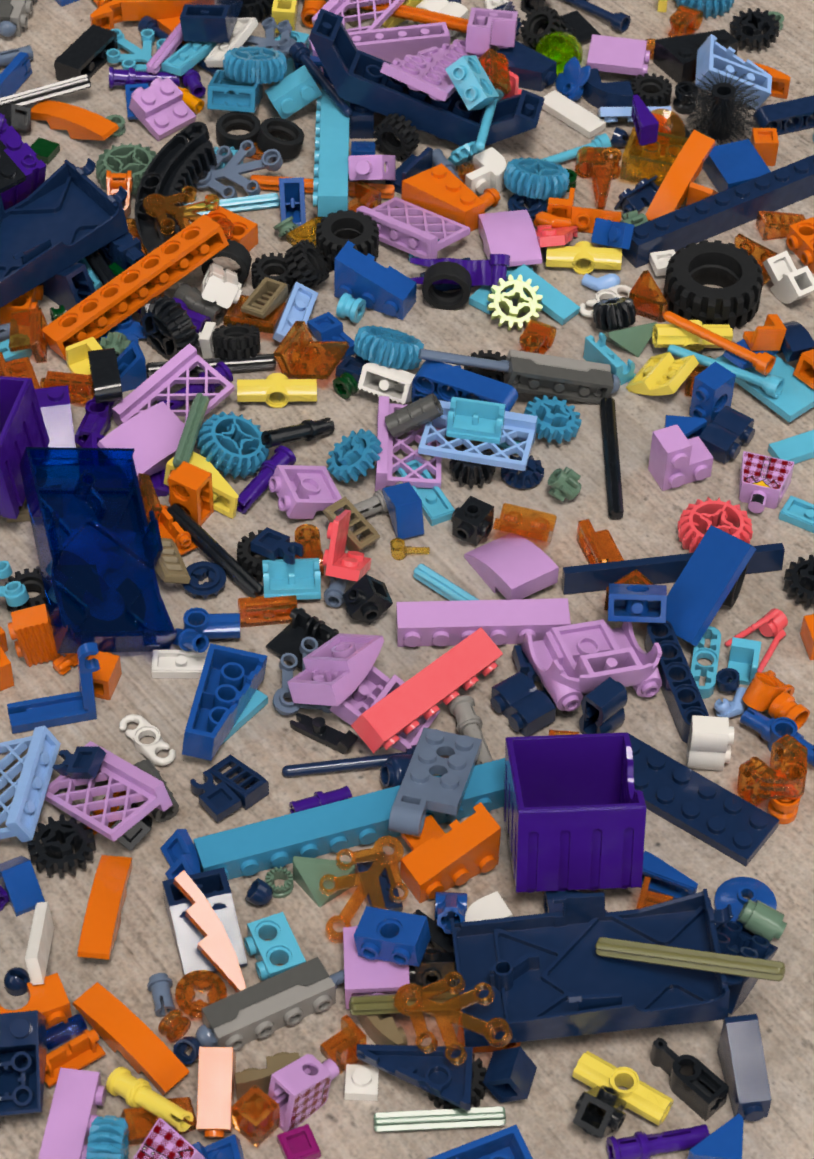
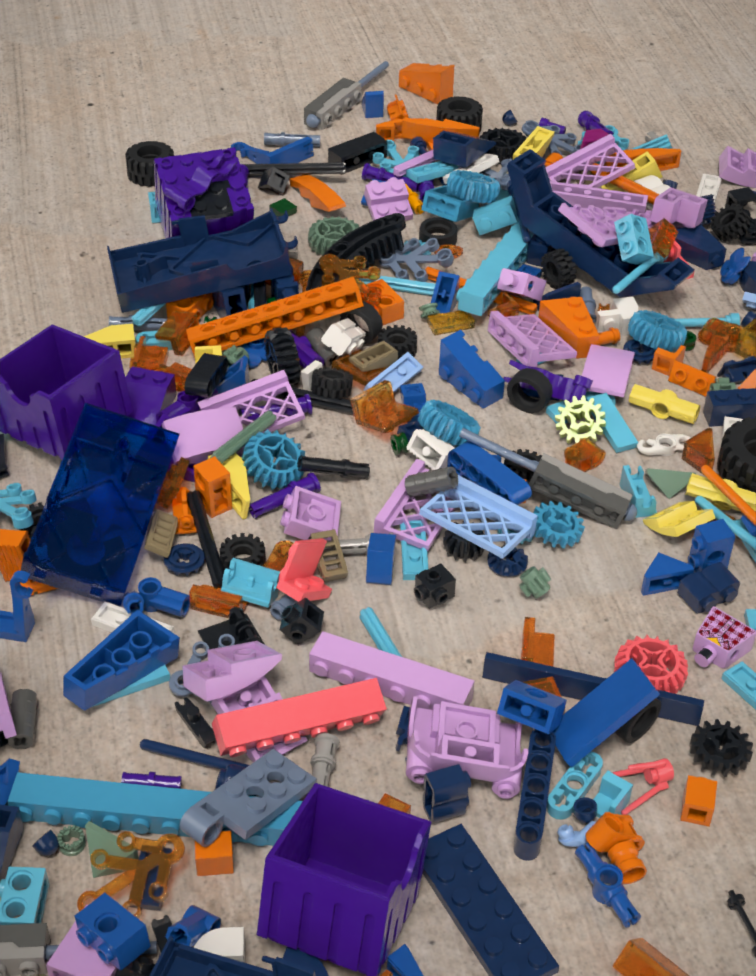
camera: 25 degrees right, 5 degrees down
(107, 676) = (50, 606): orange brick -> none
(121, 124) = (350, 205): sand green bush -> none
(125, 180) = (313, 246): orange piece -> none
(146, 729) = (52, 664): white piece -> none
(215, 799) = (68, 744): dark blue plate -> none
(250, 796) = (102, 752): dark blue slope -> none
(274, 544) = (251, 548): dark blue plate -> none
(277, 390) = (341, 430): light yellow piece -> none
(284, 129) = (469, 238): black tyre -> none
(307, 264) = (423, 341): black tyre -> none
(342, 226) = (478, 327): black tyre -> none
(351, 307) = (442, 385): medium azure wheel -> none
(354, 455) = (367, 500): dark azure gear -> none
(400, 551) = (362, 592): clear yellow hand -> none
(454, 857) = (223, 878): orange wedge -> none
(464, 153) = (606, 296): medium azure gear -> none
(475, 420) = (479, 501): medium azure hinge -> none
(513, 566) = (448, 638): lavender slope -> none
(522, 704) = (381, 762): dark blue brick -> none
(526, 522) = (480, 604): clear orange bracket -> none
(545, 218) = (650, 366): orange arm -> none
(551, 236) = (642, 378): coral wing -> none
(560, 47) = (735, 237): clear neon green cylinder -> none
(573, 114) = (721, 292): white tile -> none
(603, 282) = (669, 428): light blue arm -> none
(611, 458) = (592, 576): black axle -> none
(612, 233) = (694, 389): blue slope -> none
(614, 313) = (662, 455): black gear -> none
(677, 459) = (648, 595): lavender brick -> none
(709, 743) = (526, 862): white brick -> none
(782, 780) = (567, 929): clear orange piece -> none
(783, 810) = (572, 950): orange wheel -> none

